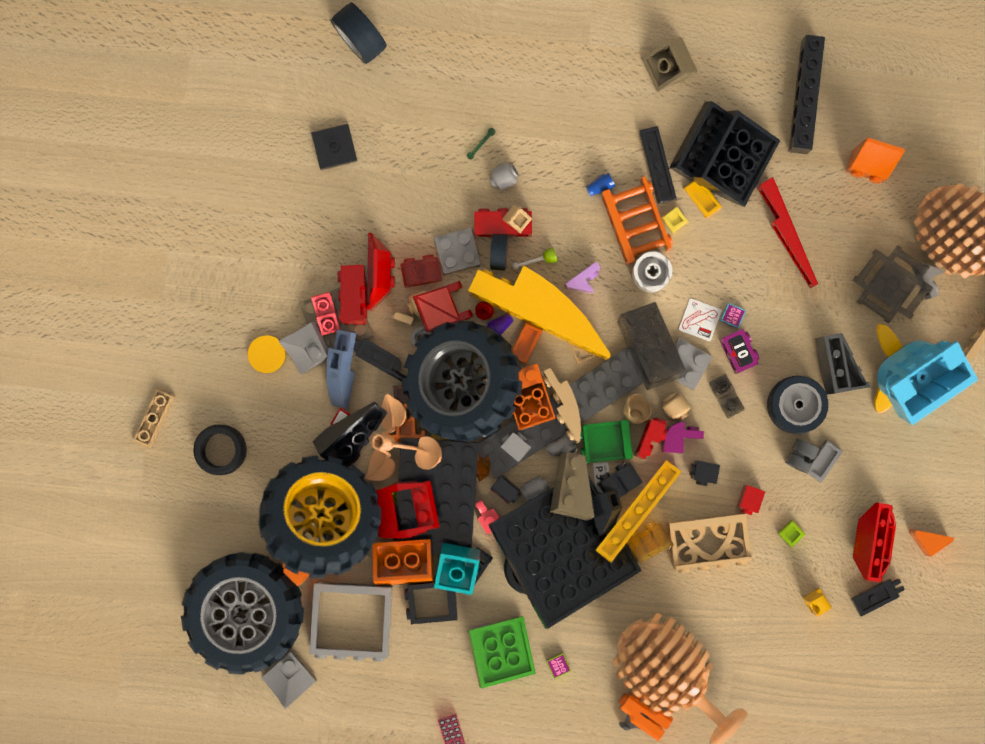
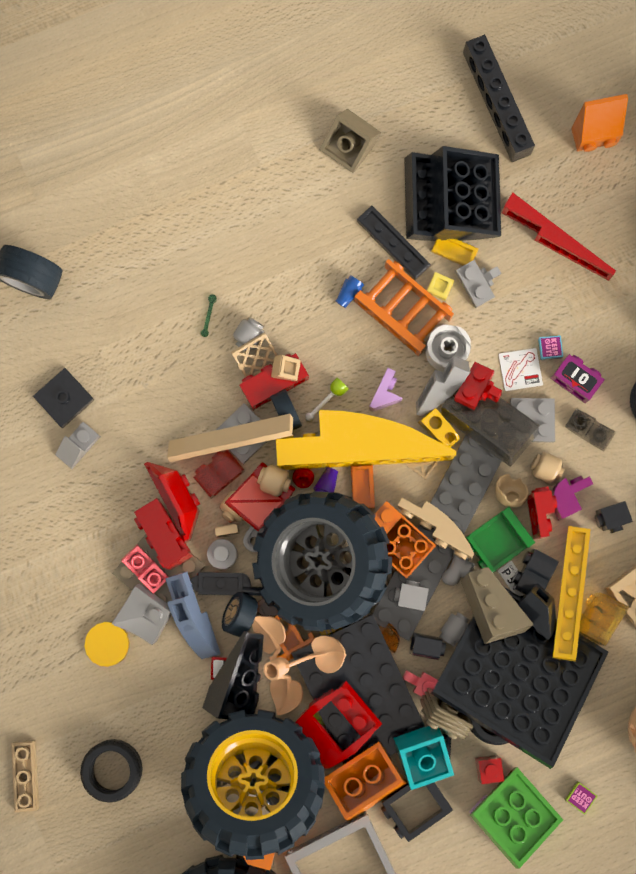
camera: 30 degrees left, 5 degrees down
(325, 189) = (77, 445): none -> light grey slope
(378, 387) = (239, 614): none -> black wheel
(390, 334) = (222, 554): none -> light grey piece
(444, 249) = (230, 438): none -> tan tile
(460, 300) = (274, 480): none -> tan head
(489, 548) = (444, 716): none -> dark tan brick
(492, 191) = (251, 344): none -> tan window
(501, 606) = (489, 769): none -> red brick
(610, 331) = (439, 428): none -> yellow leg
(630, 298) = (442, 385): none -> light grey slope
(655, 315) = (477, 387): none -> red hinge
(705, 232) = (477, 282): none -> light grey hinge

